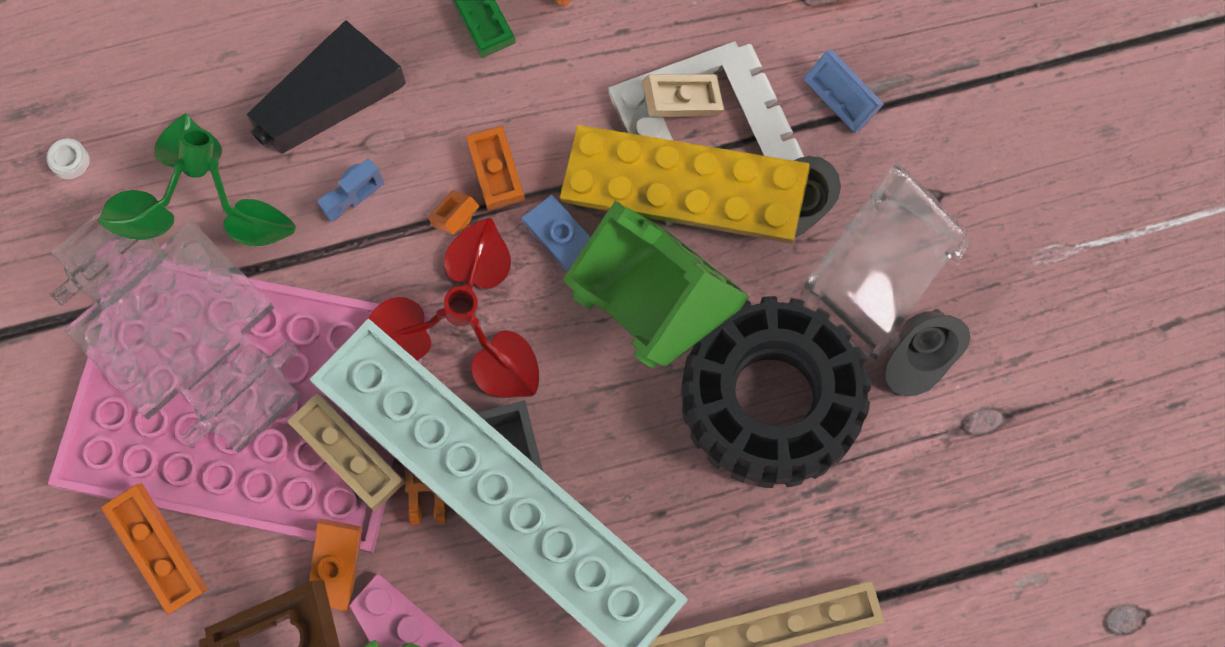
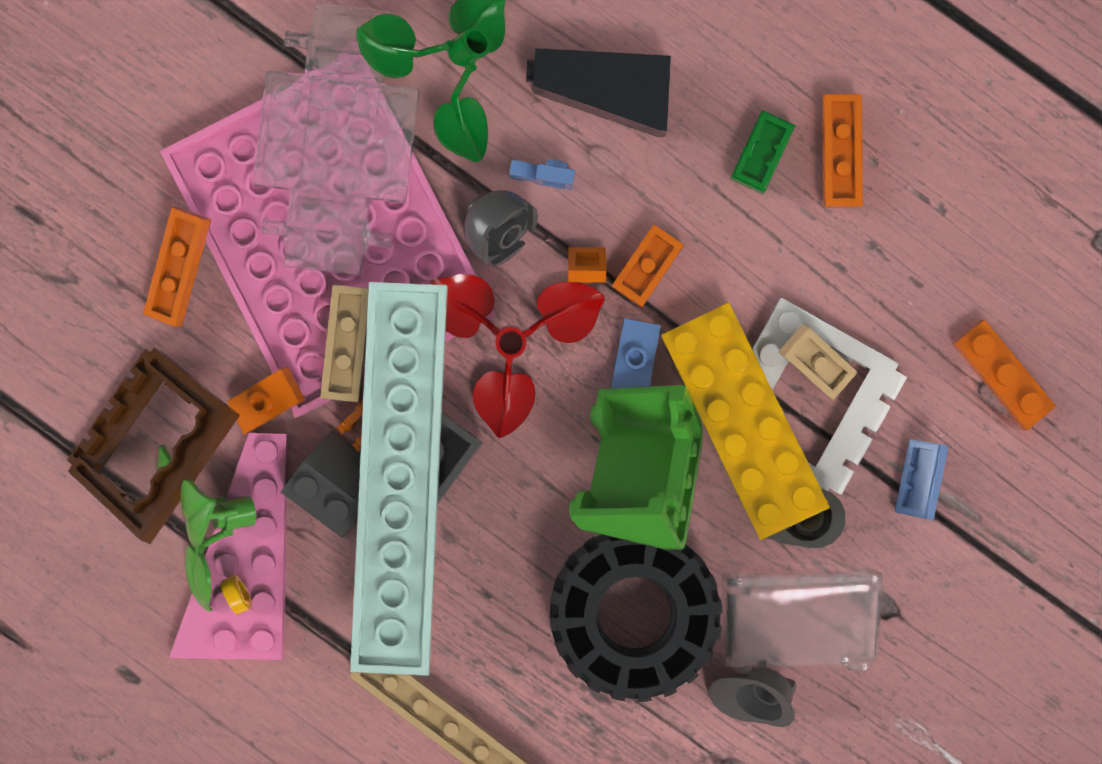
camera: 50 degrees right, 15 degrees up
(358, 254) = (497, 224): none -> dark grey cylinder
(455, 567) = (328, 484): none -> dark grey slope

